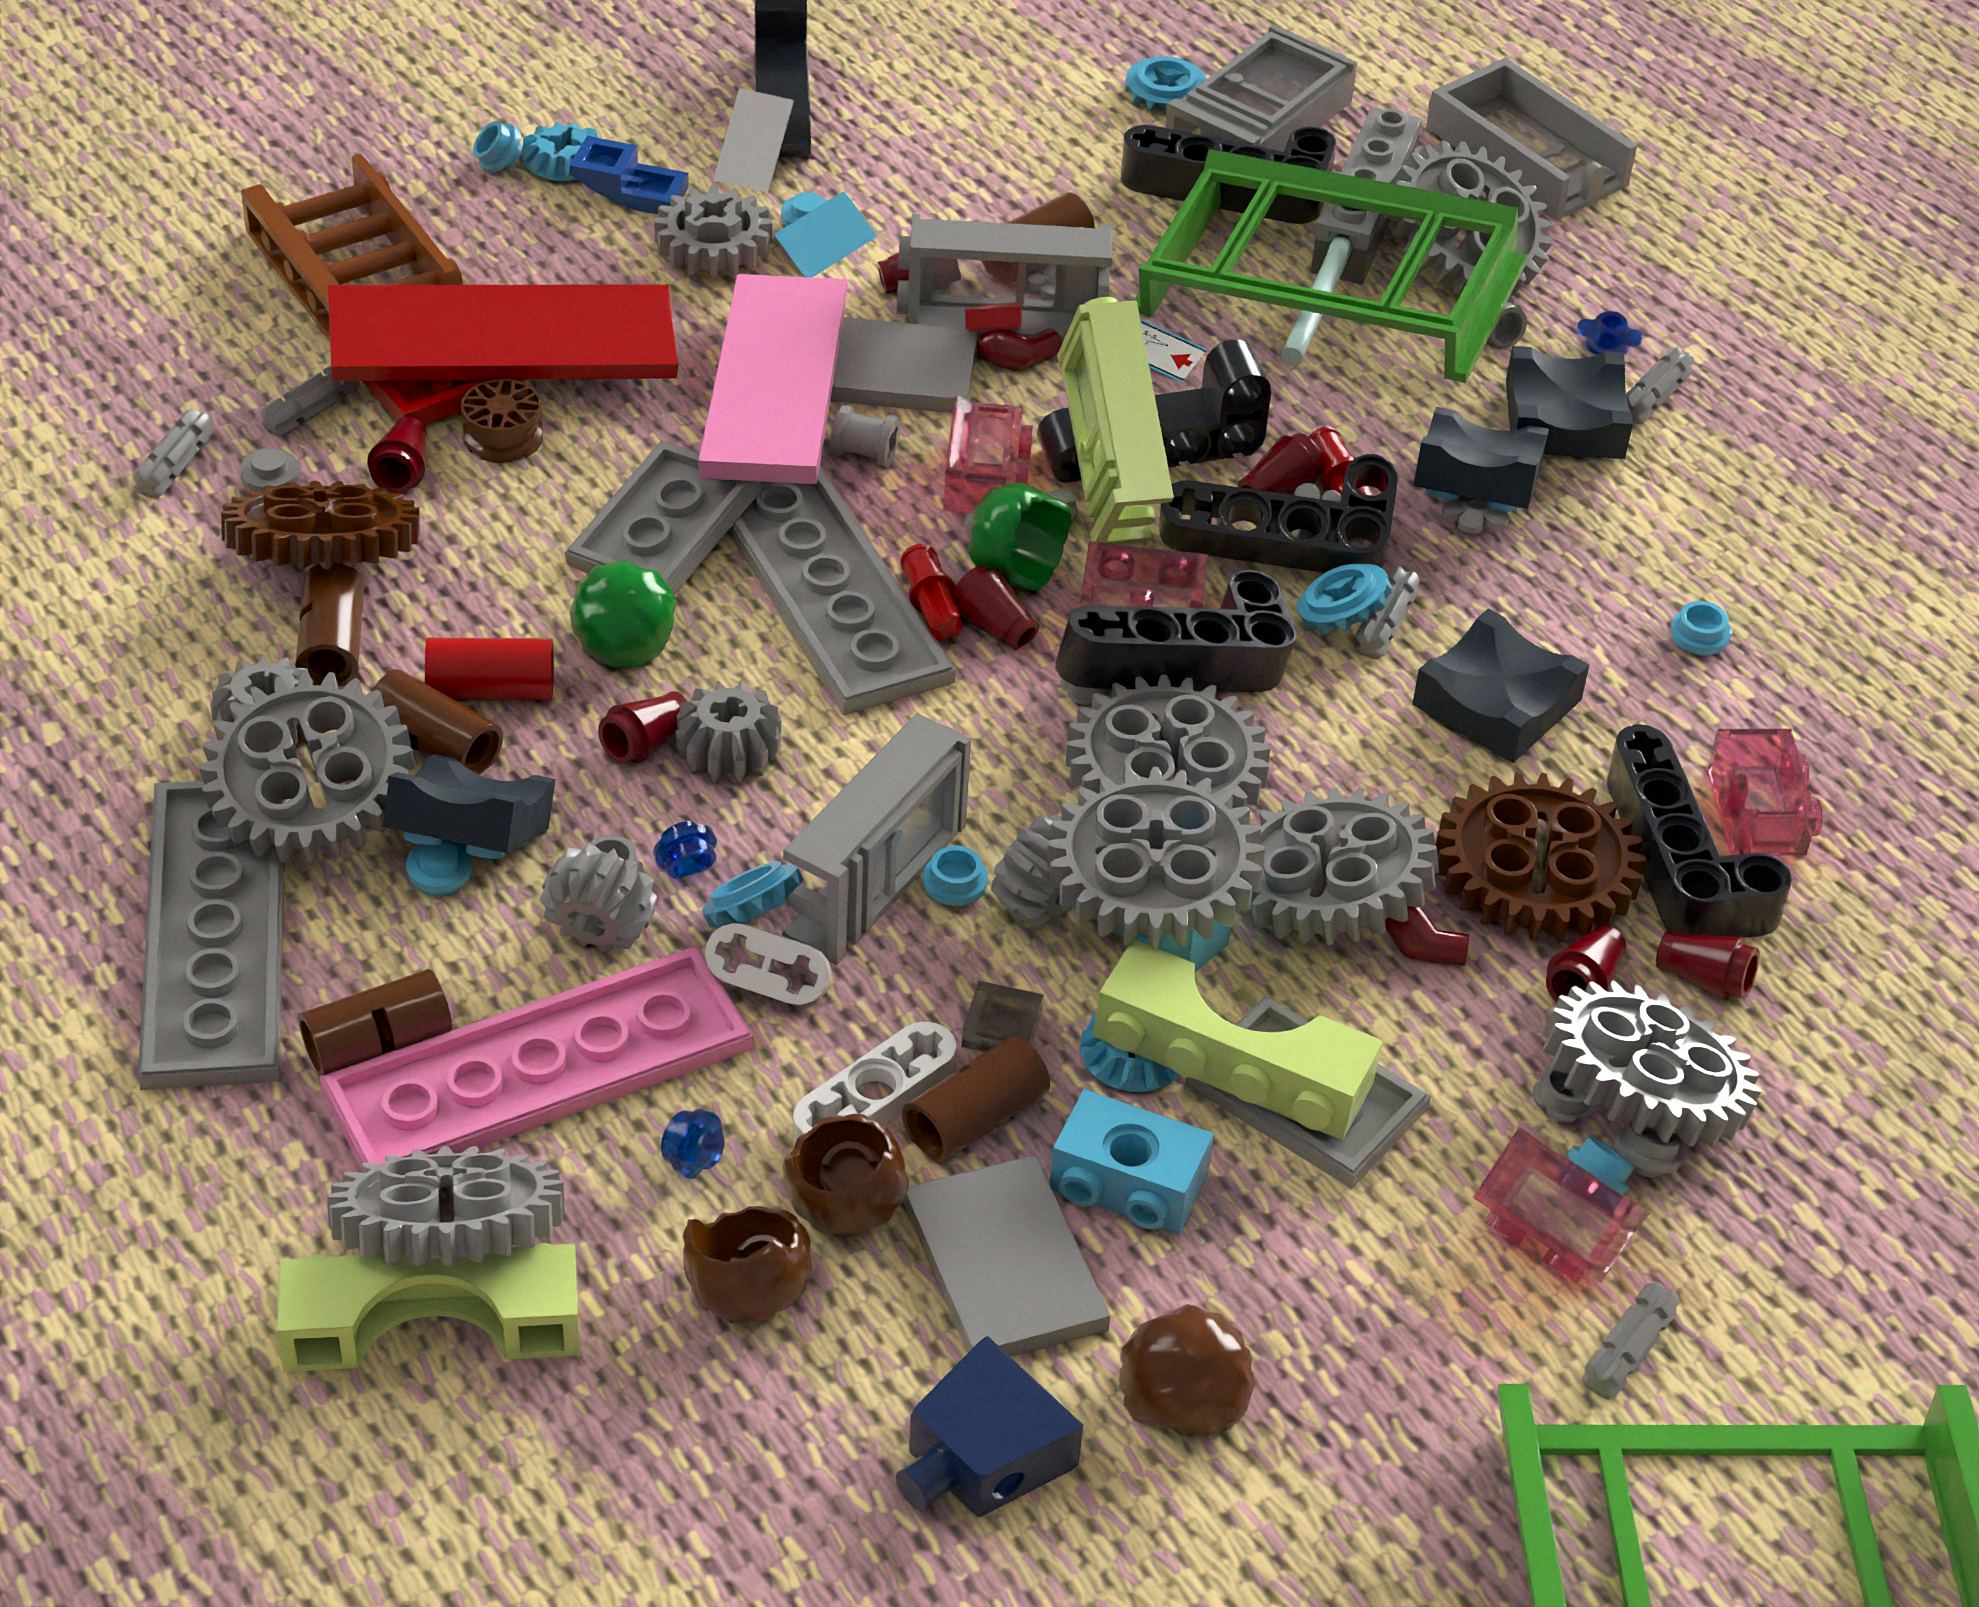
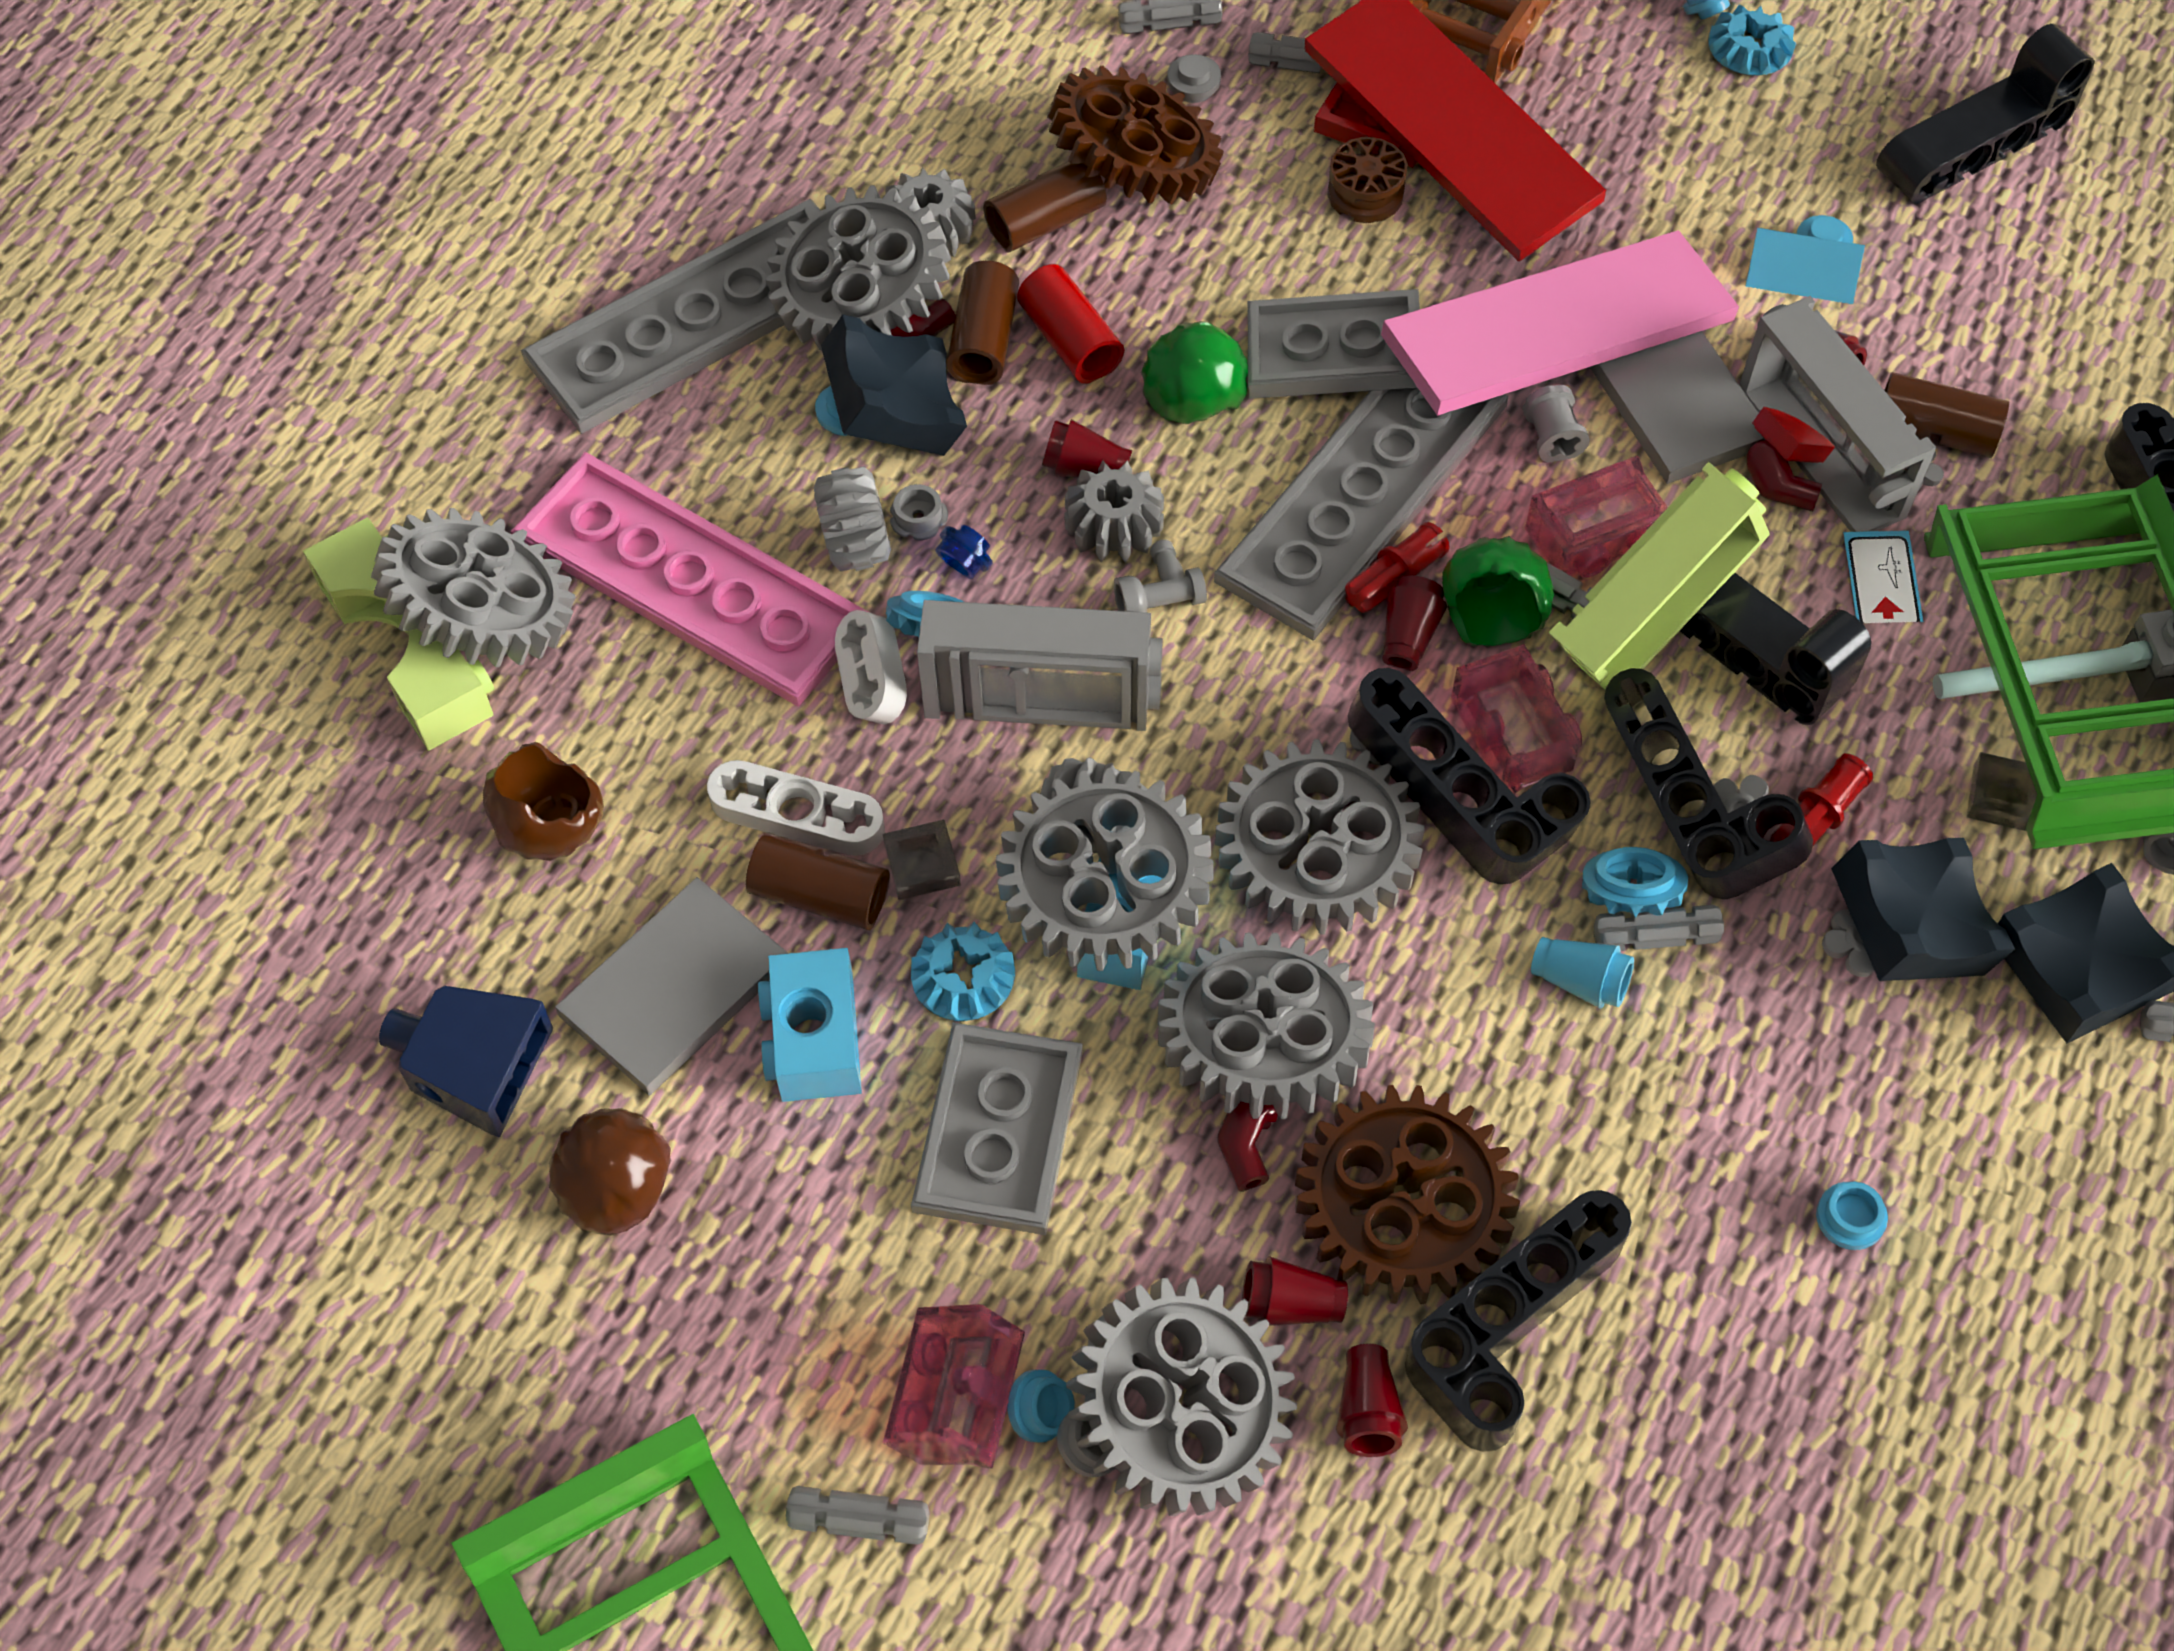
camera: 65 degrees right, 15 degrees up
(375, 1022) = (650, 454): reddish brown pin -> none
(398, 455) = (1274, 140): dark red cone -> none
(615, 173) = (1749, 97): blue slope -> none
(693, 1142) = (657, 712): clear blue plate -> none
(713, 231) = (1729, 187): light grey gear -> none
(753, 140) = (1874, 149): white sticker -> none
(829, 763) = (1173, 587): none -> light grey piece
(846, 1175) = (664, 825): reddish brown hair -> none
(955, 876) = (1064, 741): medium azure plate -> none
(1286, 466) = (1780, 755): dark red cone -> none
(1303, 1073) = (979, 1112): yellowish green arch -> none
(1397, 664) = (1584, 969): none -> medium azure cone
(1398, 377) = (2001, 792): none -> clear smoke plate
(1500, 687) = (1613, 1065): black brick -> none
(1763, 792) = (1640, 1364): clear pink window -> none

